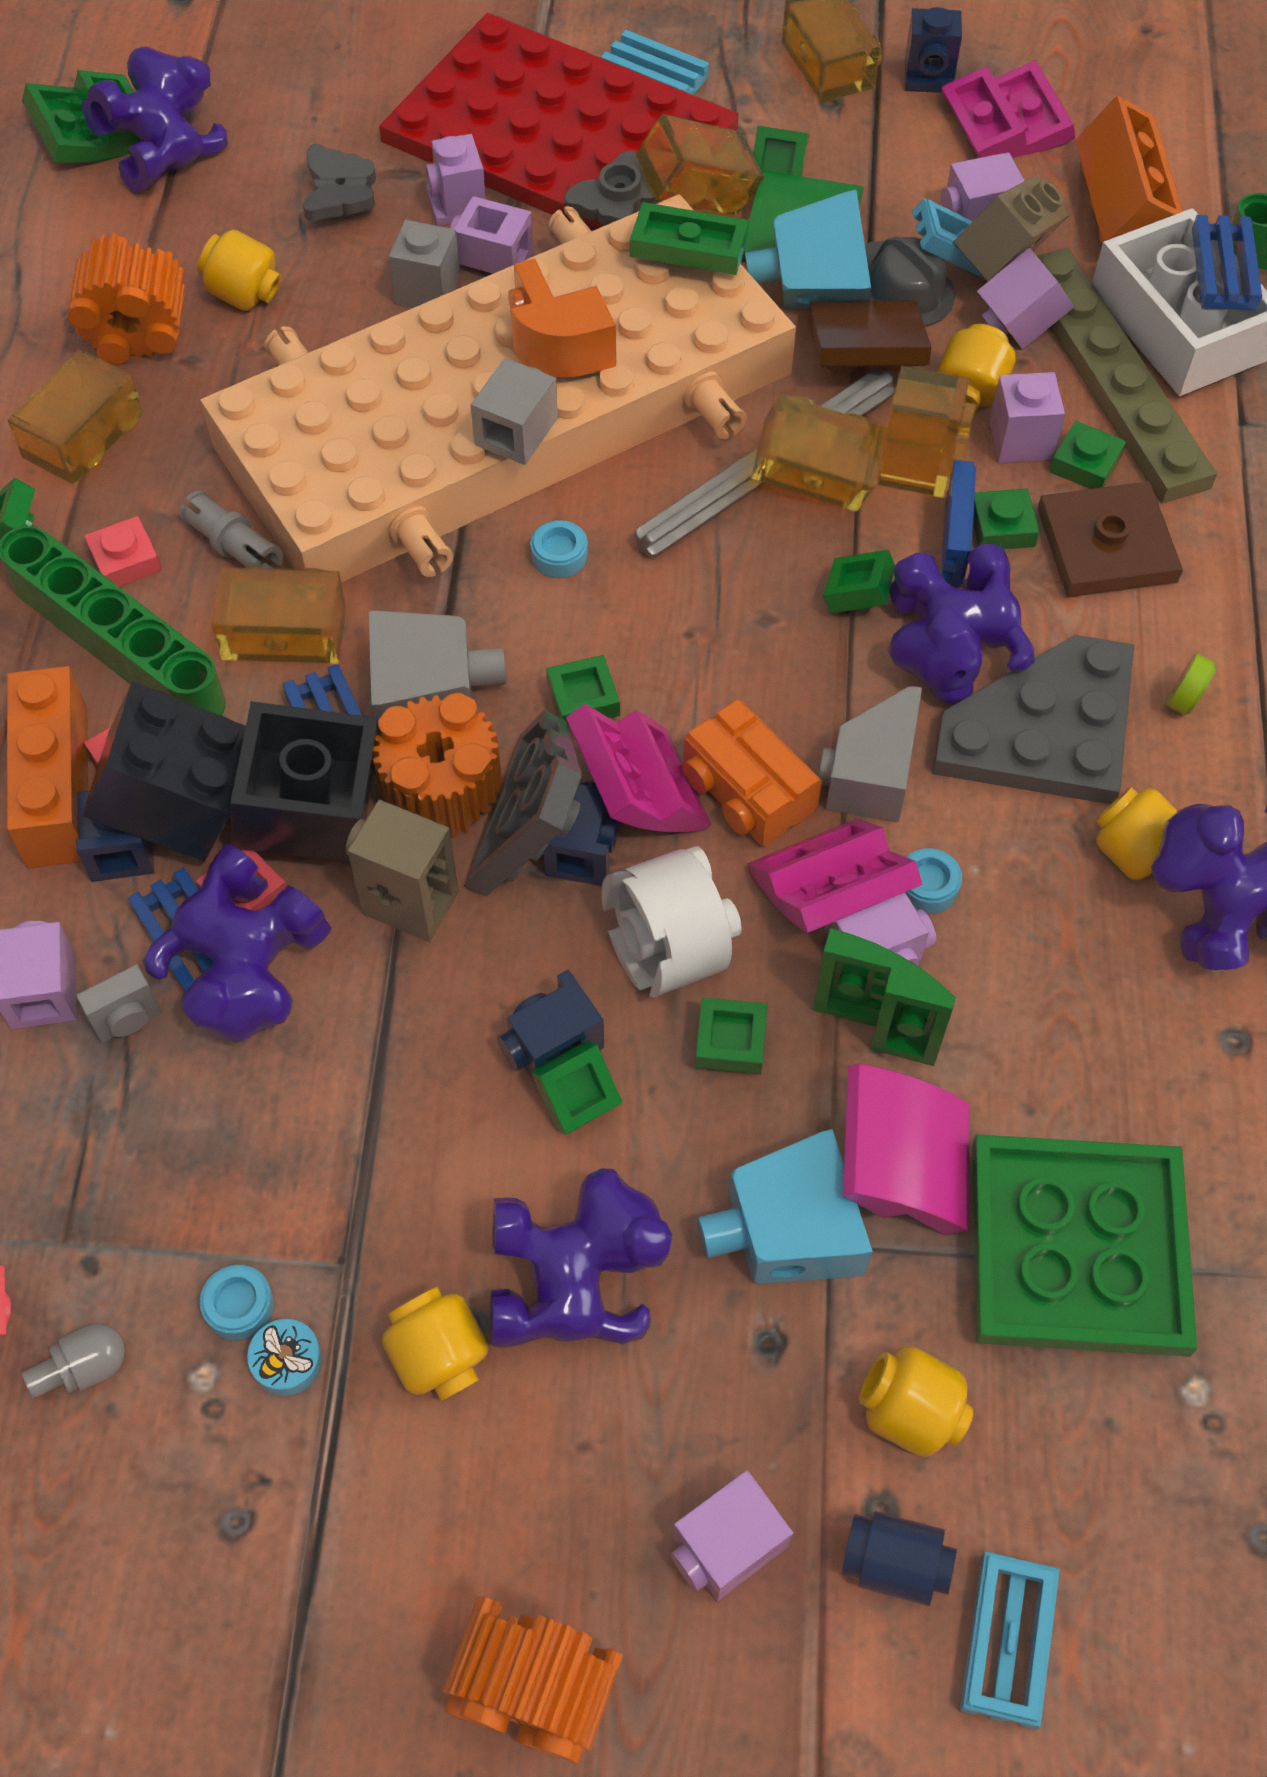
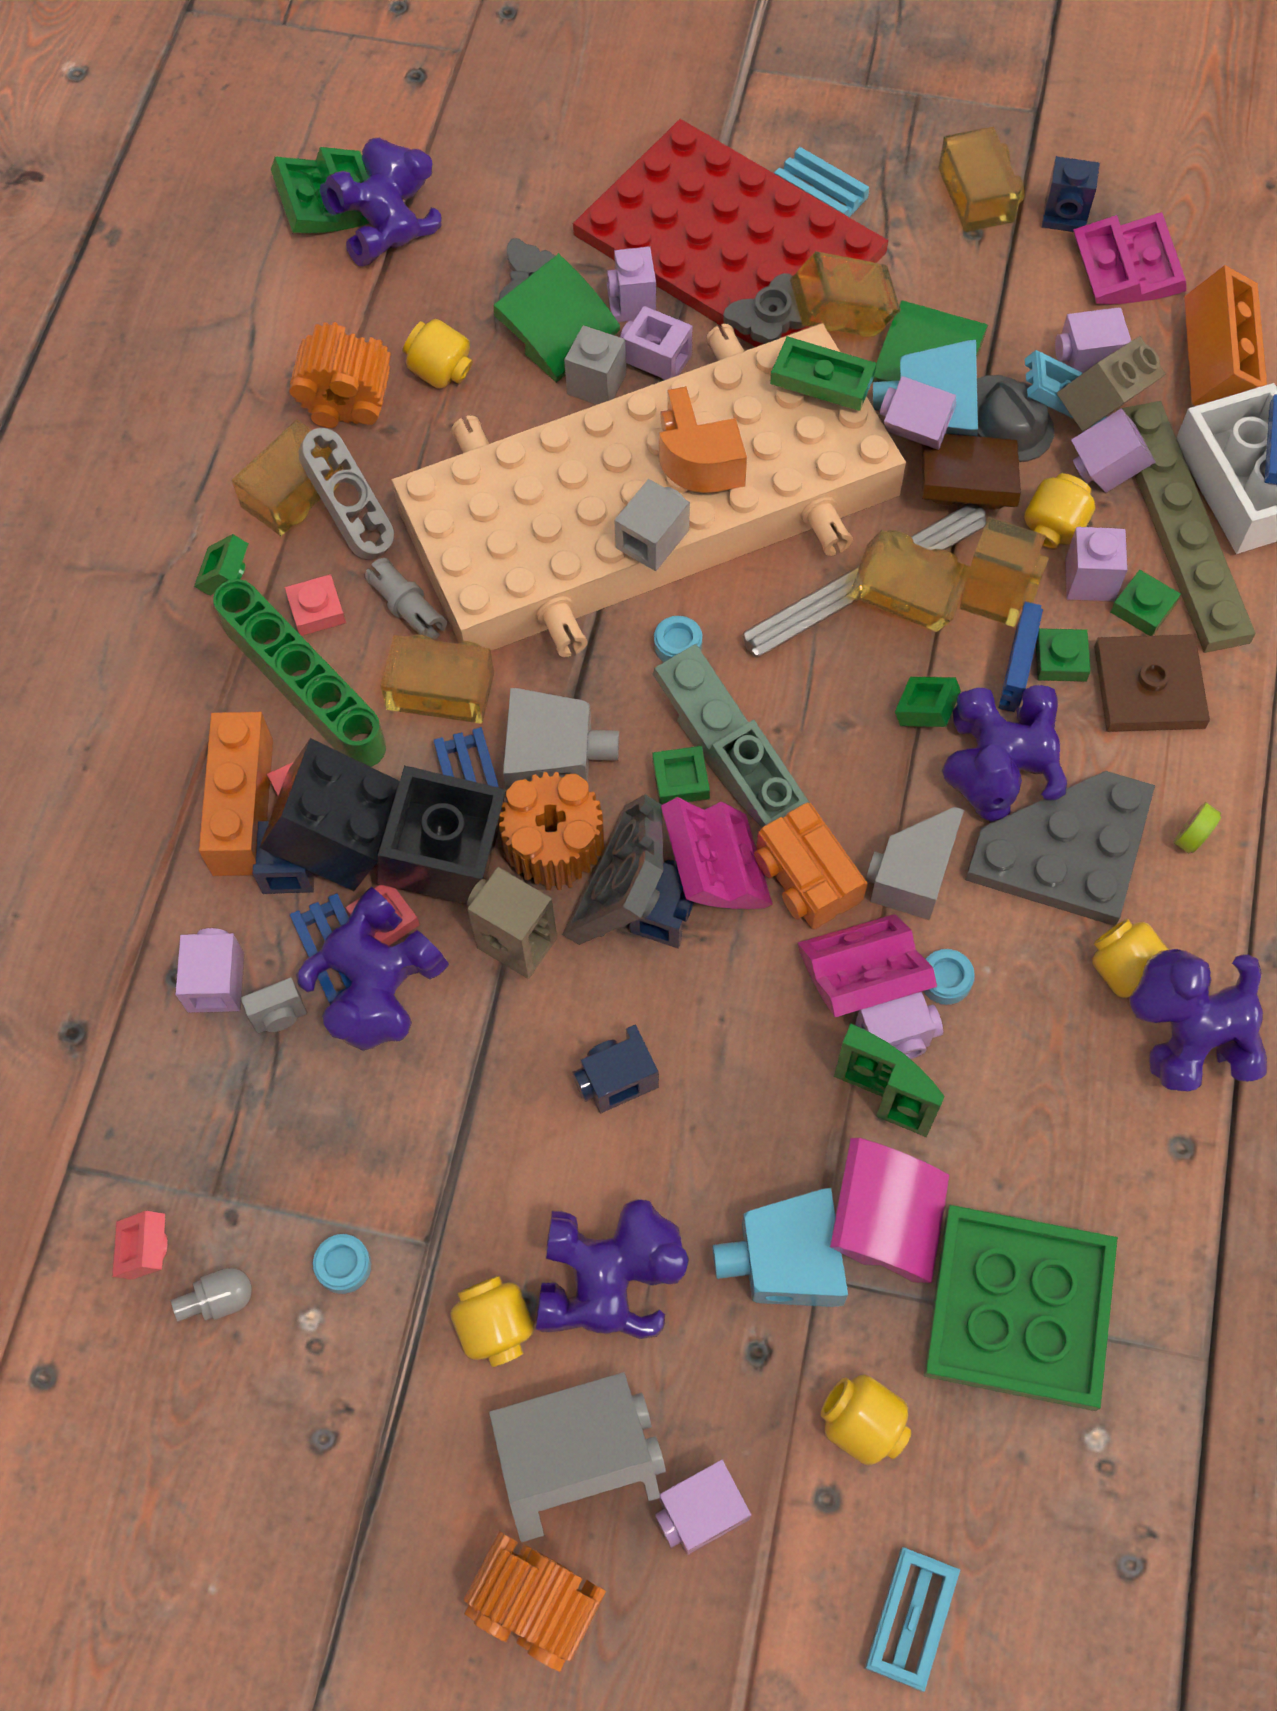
camera: 10 degrees right, 5 degrees up
(110, 398) = (318, 468): none -> light grey beam
(285, 1357) = (374, 1313): tile -> none
(363, 216) = (550, 312): none -> green slope
(559, 1481) = (574, 1448): none -> light grey panel
(576, 1087) = (630, 1122): green plate -> none
(641, 653) = (730, 744): none -> sand green slope
(670, 921) = (724, 992): white brick -> none
(731, 1035) = (762, 1093): green plate -> none
(780, 150) = (919, 283): green plate -> none
(802, 271) = (918, 412): none -> lavender brick
(899, 1557) = (833, 1543): dark blue brick -> none

